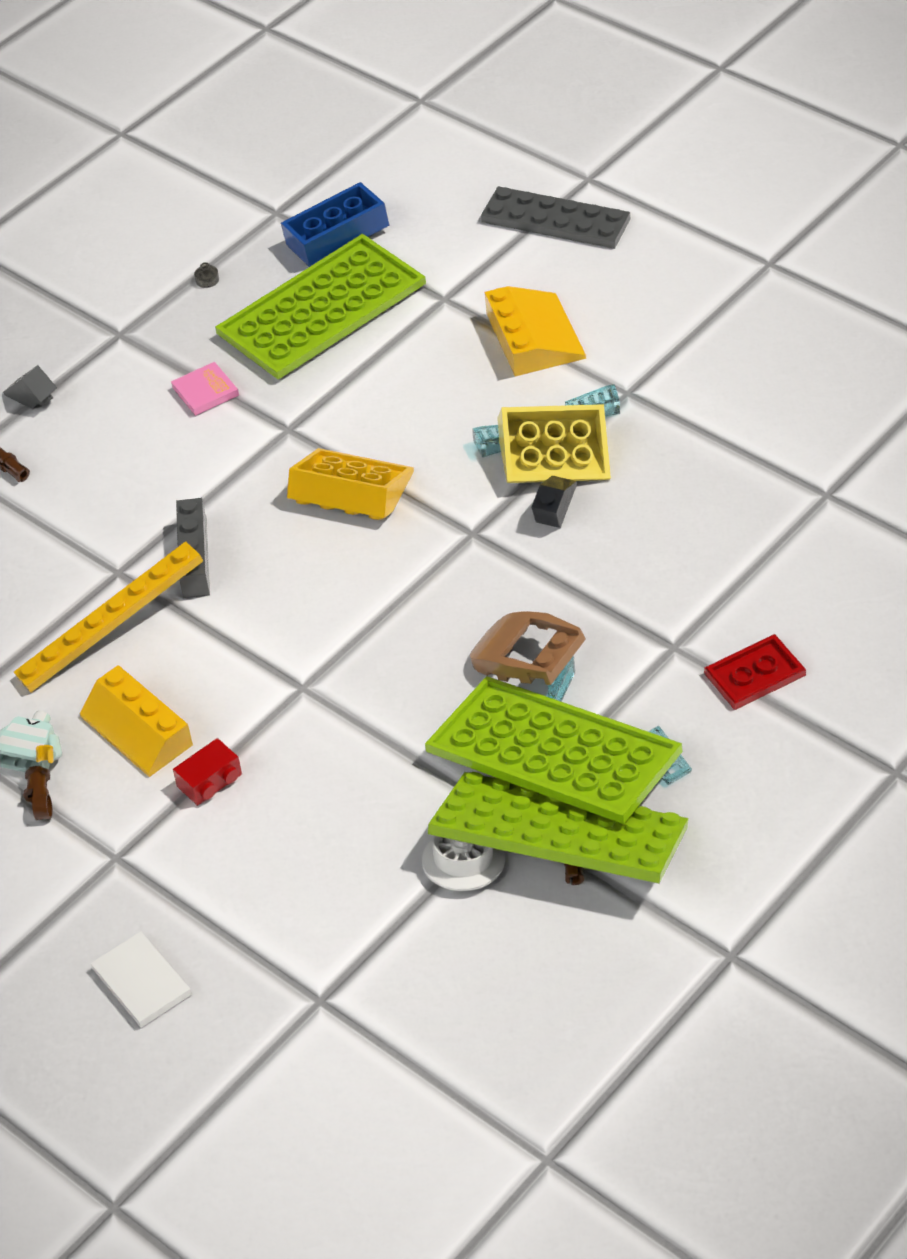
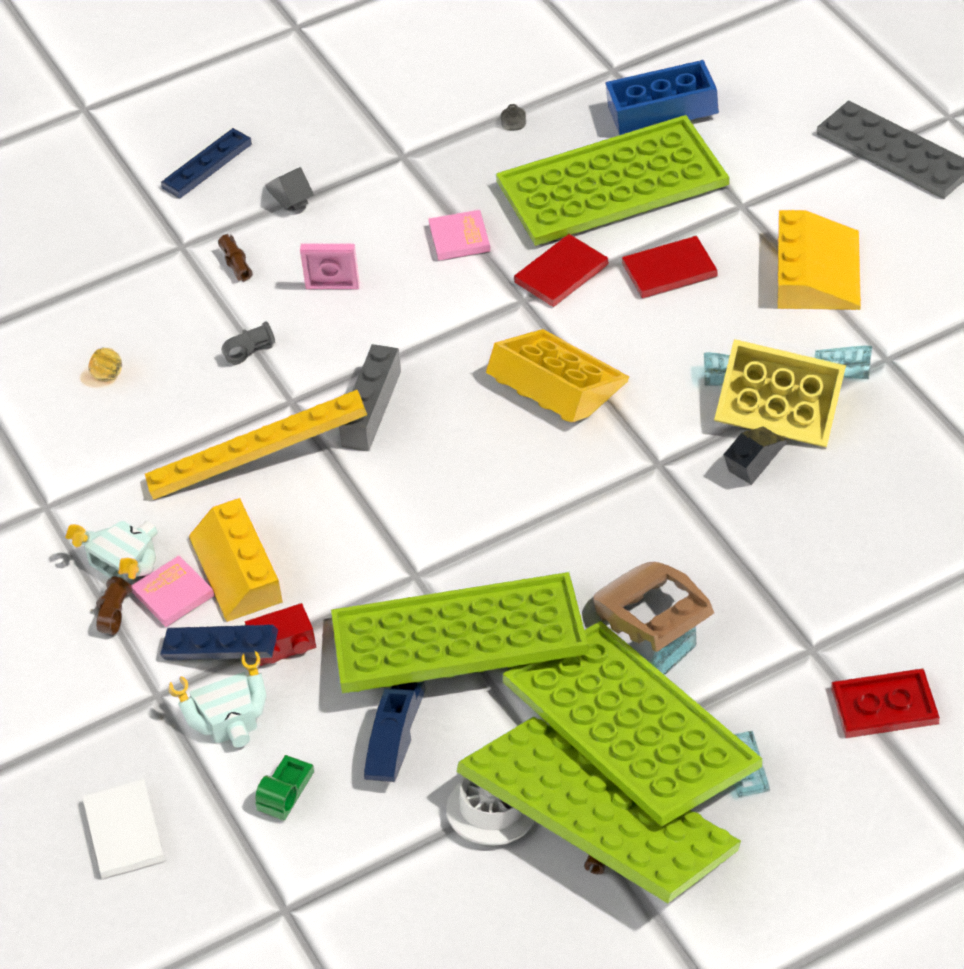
camera: 20 degrees right, 0 degrees up
(56, 530) = (248, 342): none -> dark grey connector
(87, 765) = (172, 591): none -> bright pink tile
(103, 444) = (330, 266): none -> bright pink tile
(157, 793) = (219, 642): none -> dark blue plate
(188, 846) = (226, 706): none -> light aqua torso
(272, 898) = (280, 792): none -> green plate
(311, 394) = (561, 270): none -> red tile
(348, 820) = (391, 731): none -> dark blue slope
(367, 721) = (458, 632): none -> lime plate
(405, 366) = (669, 266): none -> red tile

